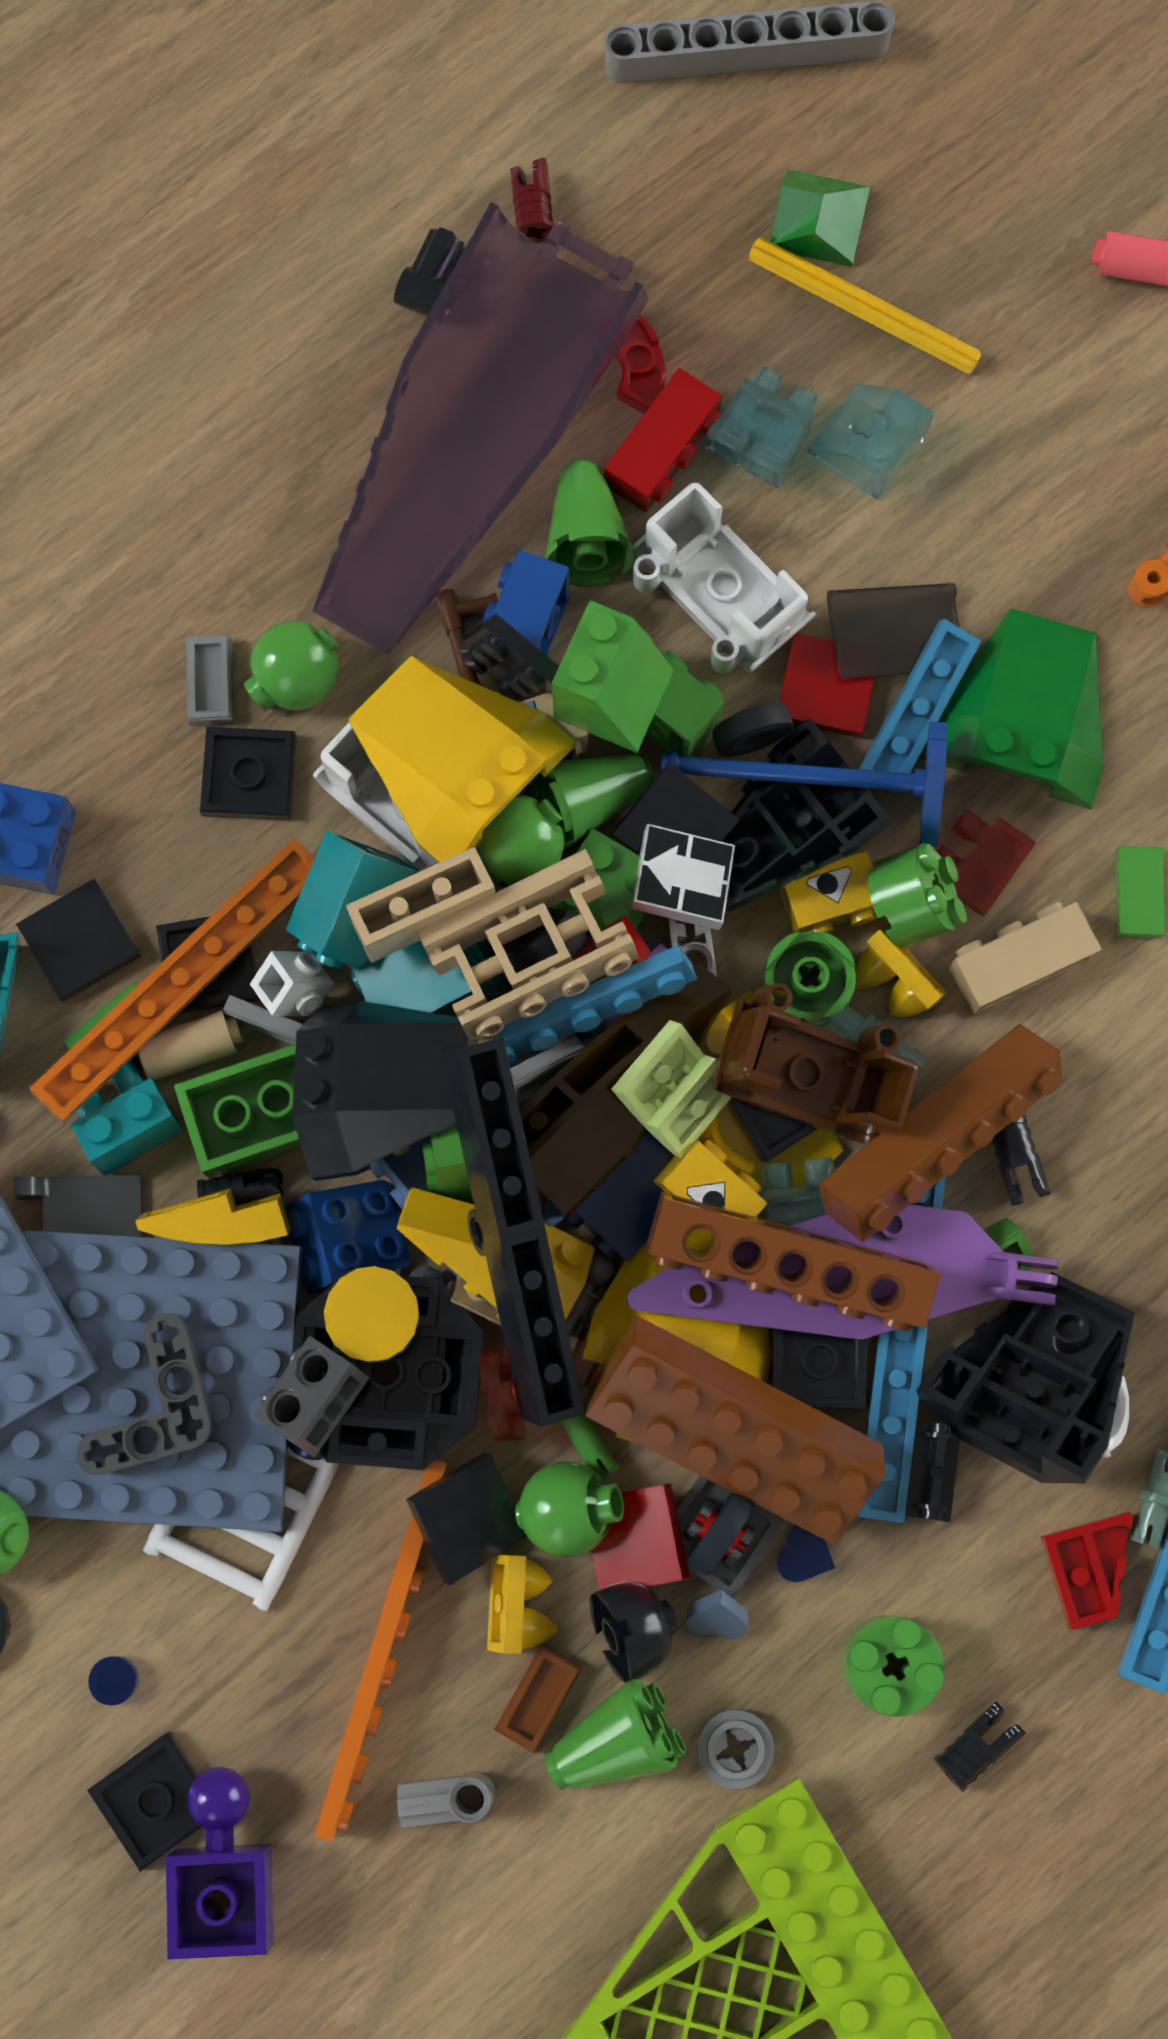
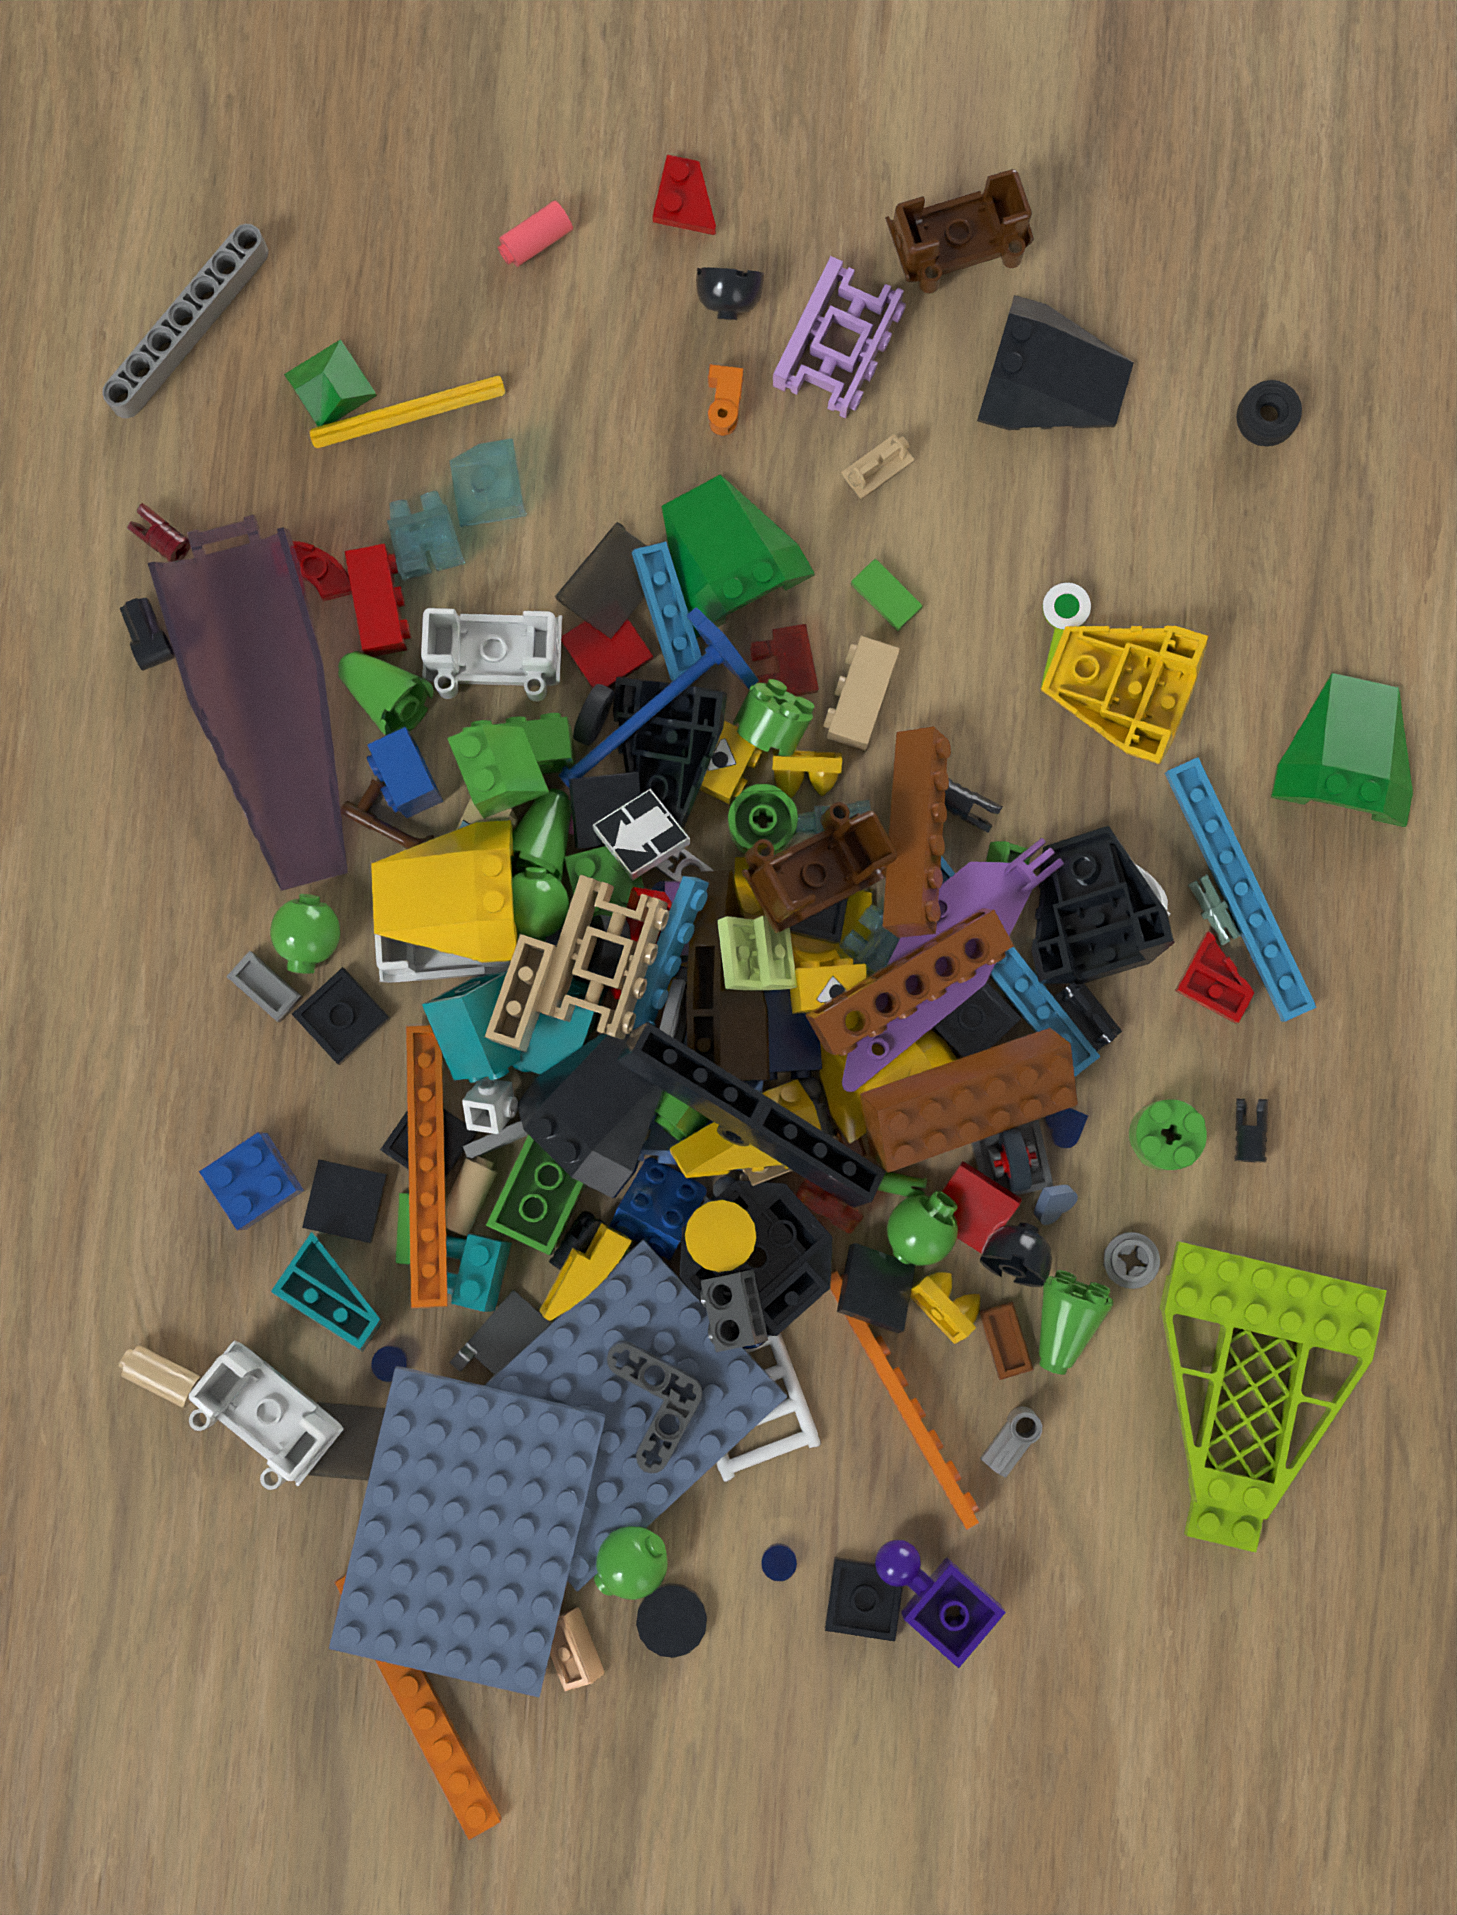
camera: 45 degrees left, 5 degrees up
(508, 659) = (426, 810): black plate -> none

